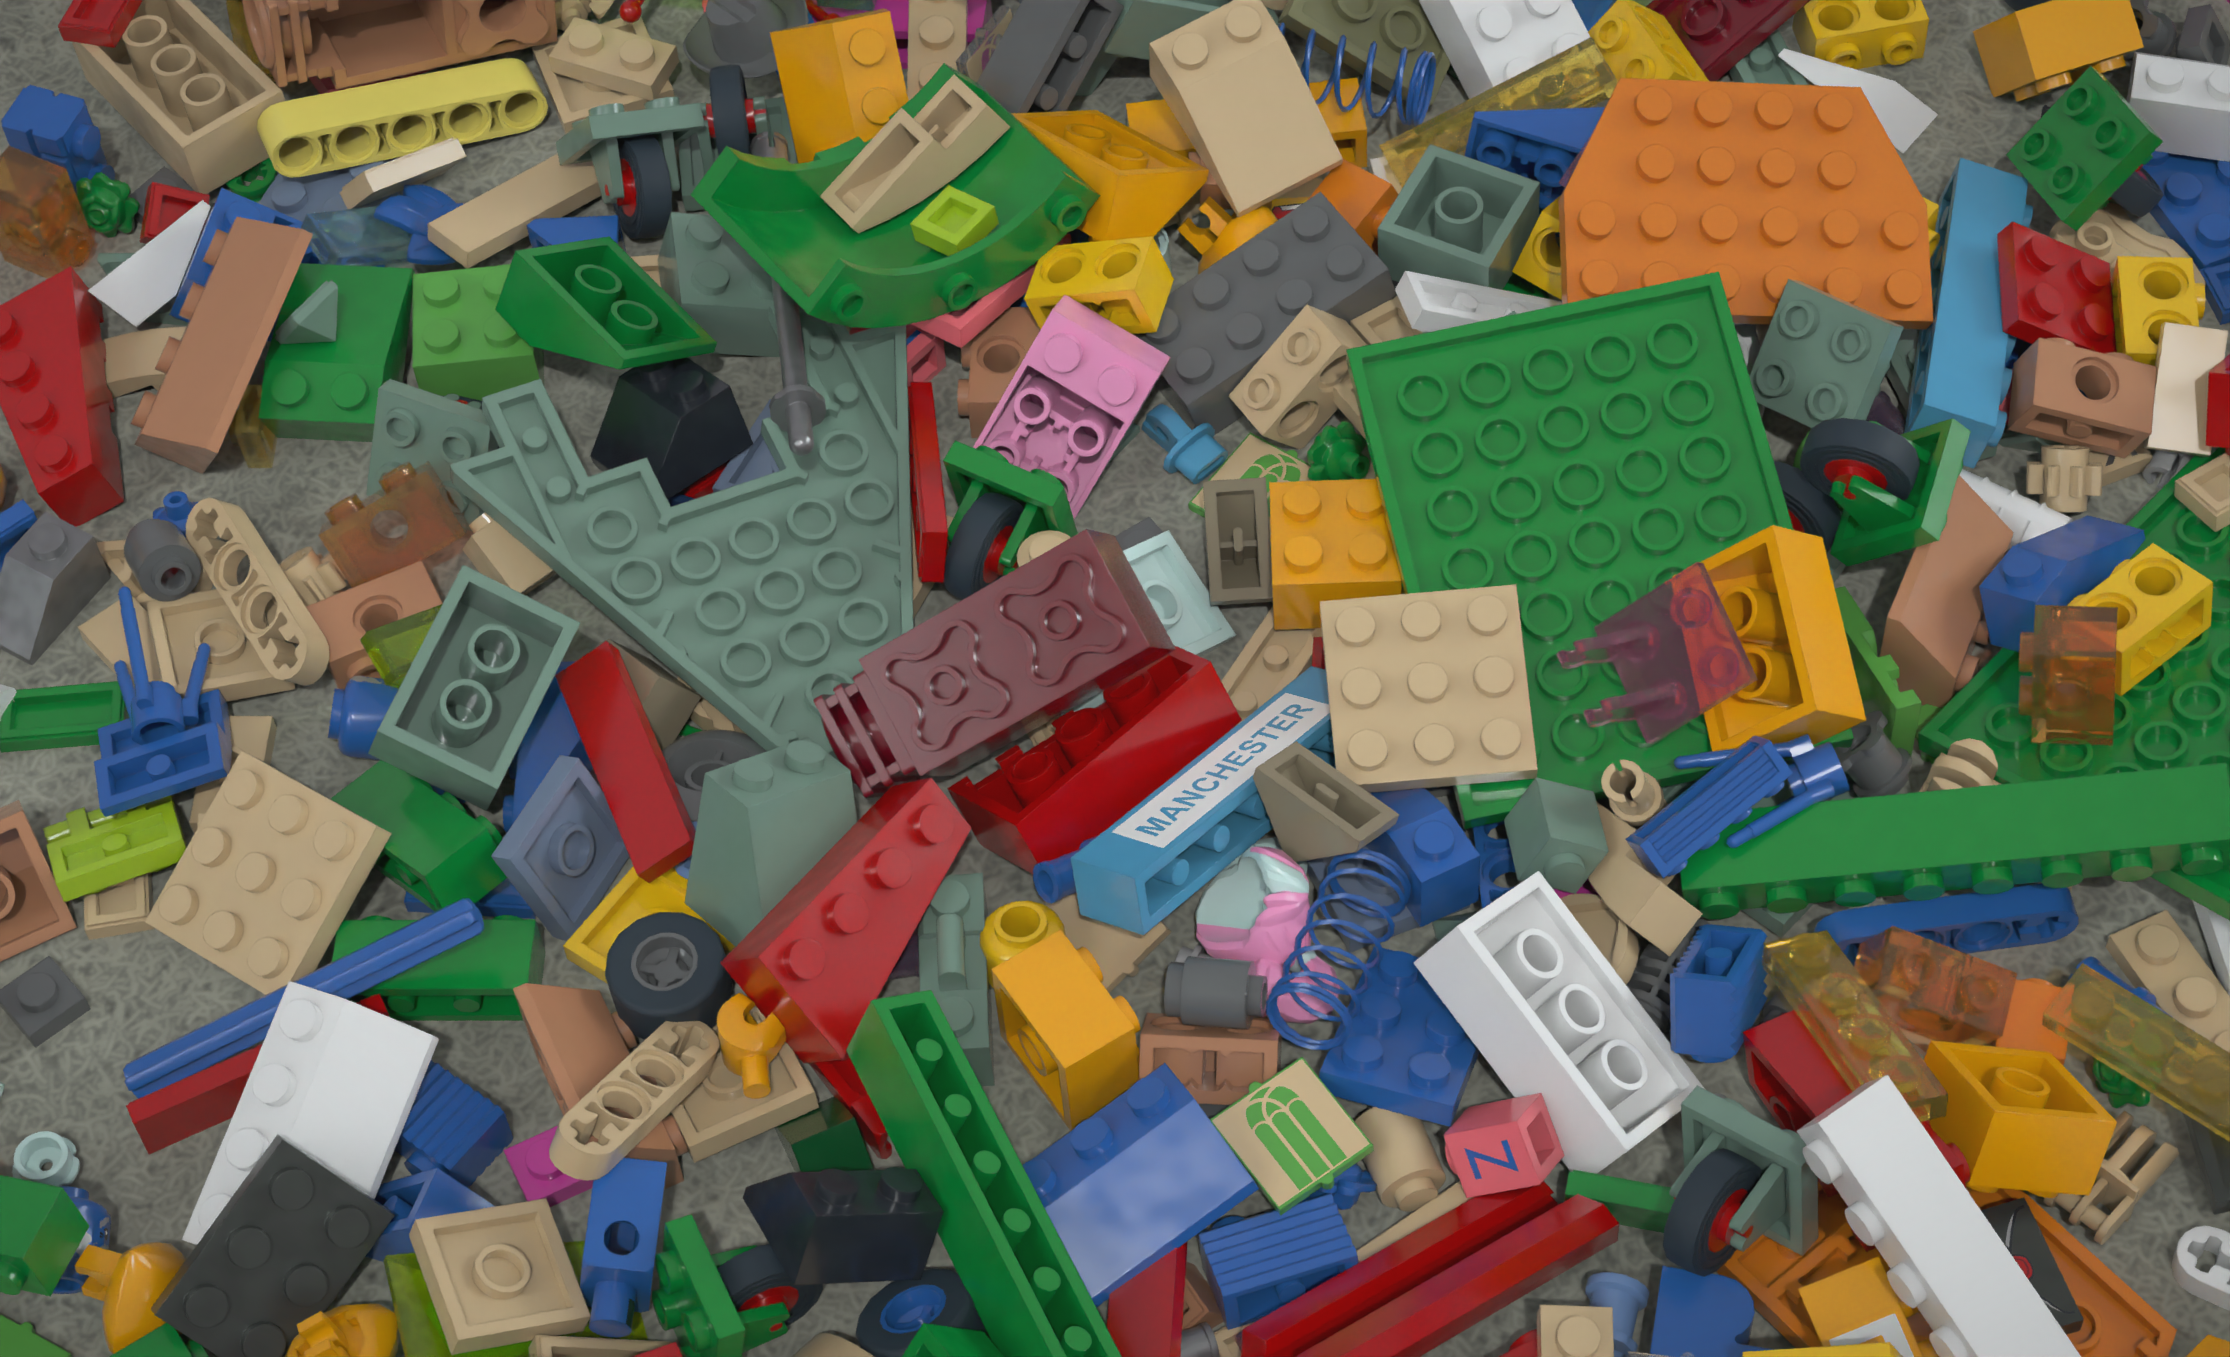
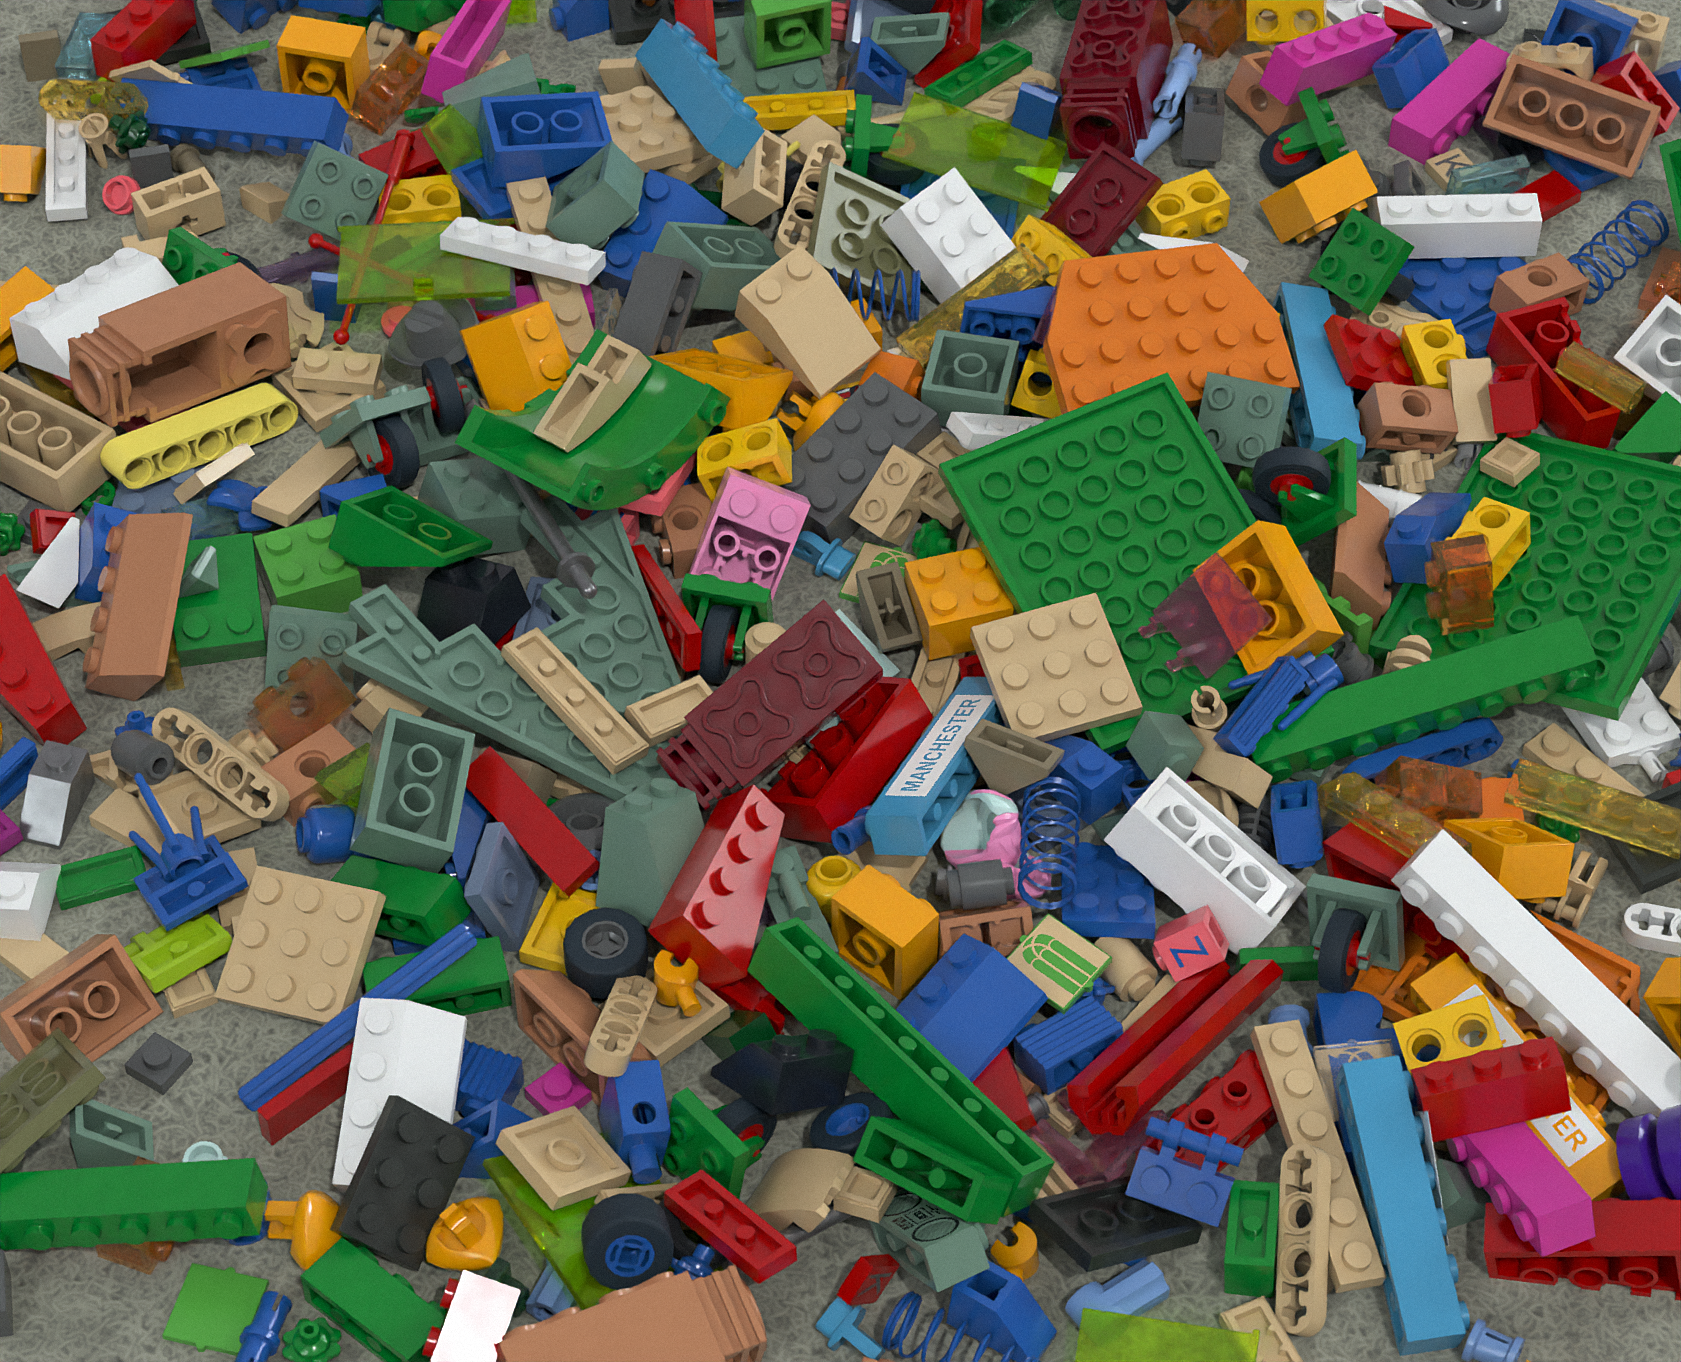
camera: 20 degrees left, 5 degrees down
(748, 597) = (575, 700): none -> tan tile
(859, 632) = (663, 713): none -> tan tile
(954, 221) = (635, 432): lime plate -> none

